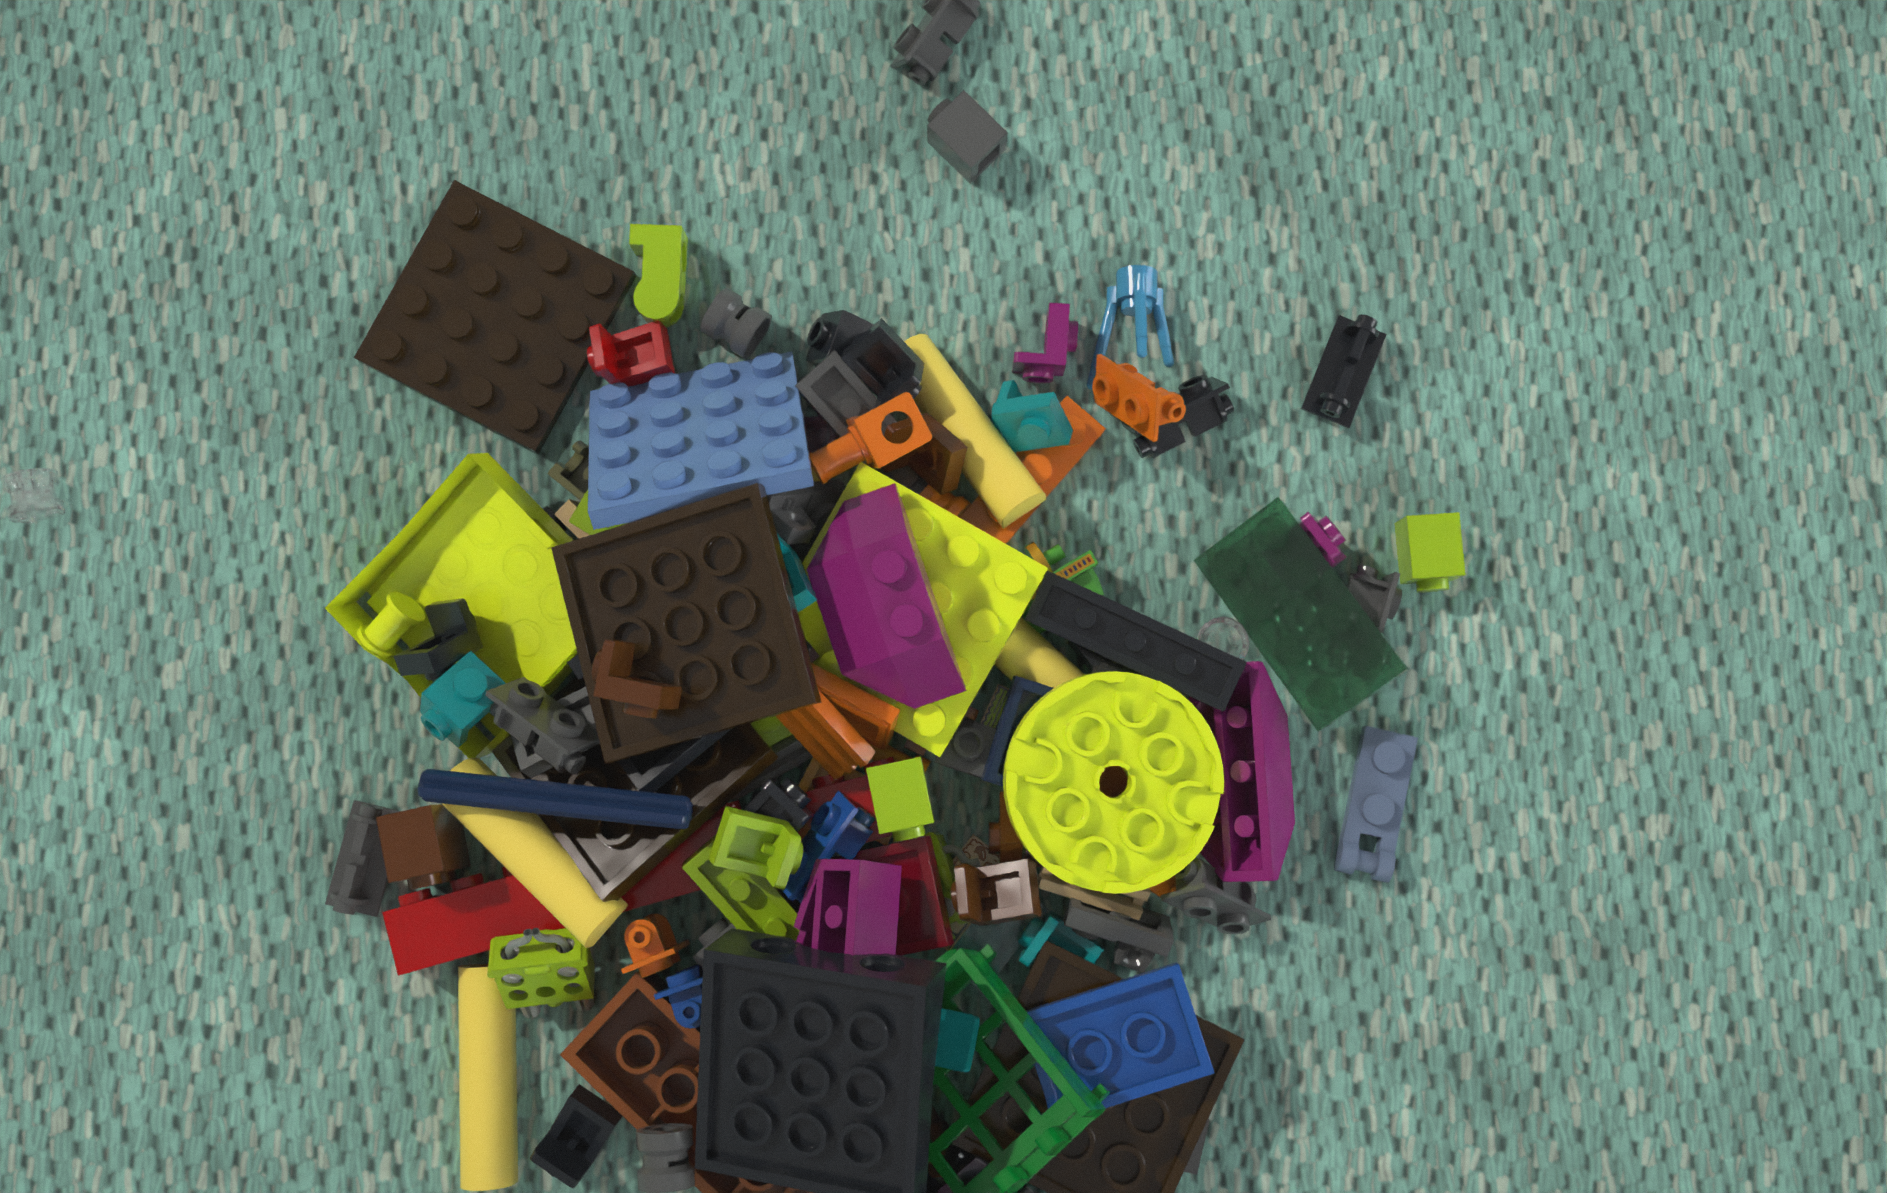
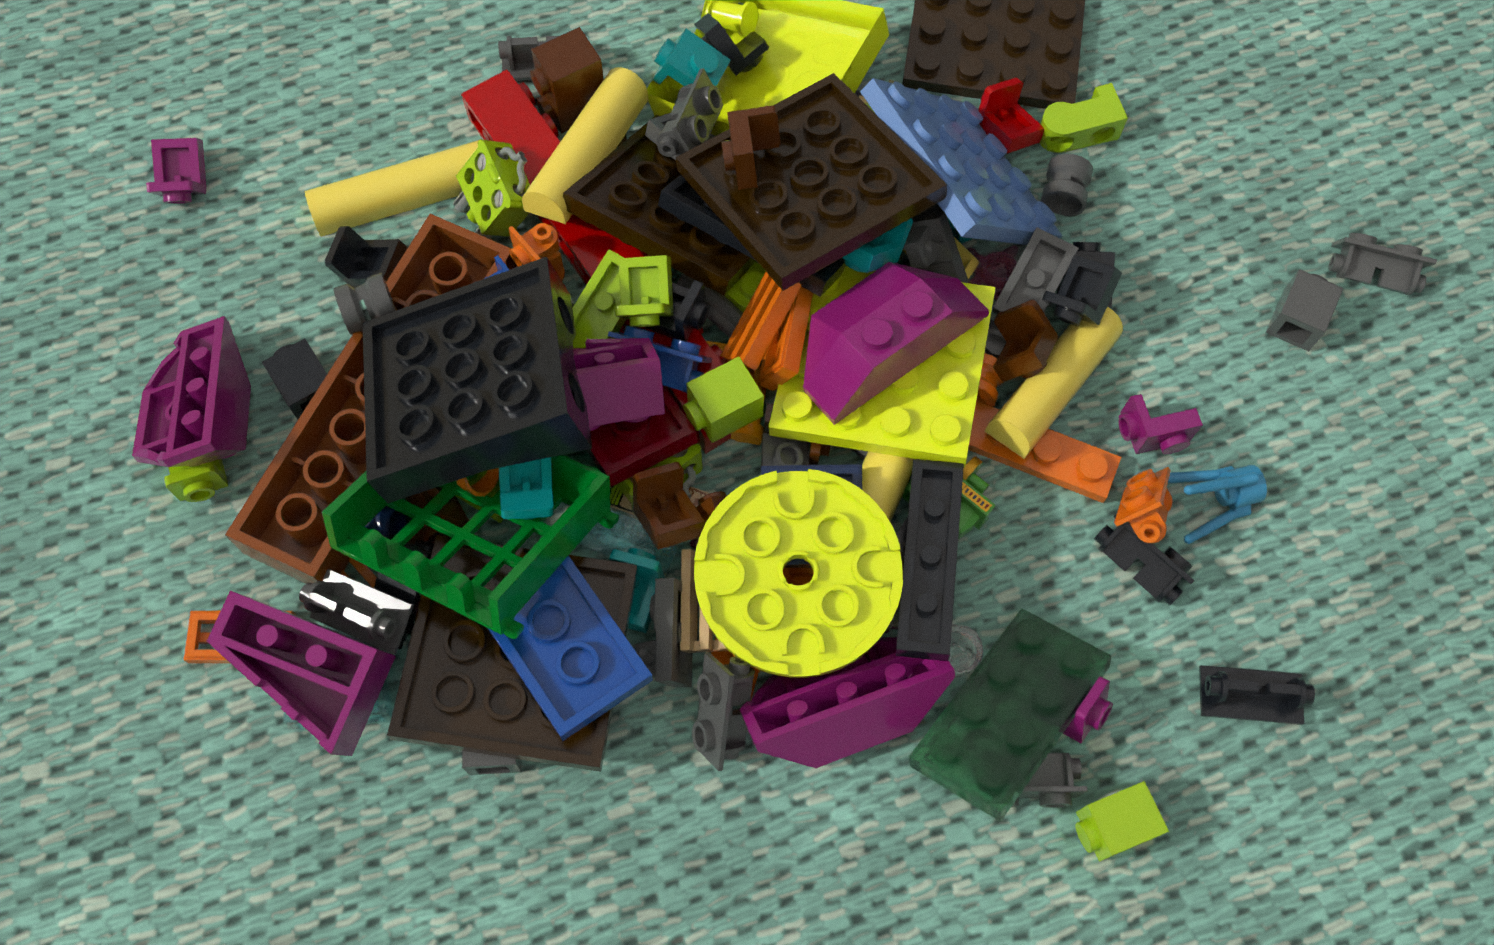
camera: 70 degrees right, 15 degrees down
(555, 799) = (635, 141): dark blue axle -> none
(866, 441) = (1011, 283): orange bracket -> none
(1030, 420) = (1088, 423): teal bracket -> none
(1376, 802) = (862, 847): sand blue plate -> none

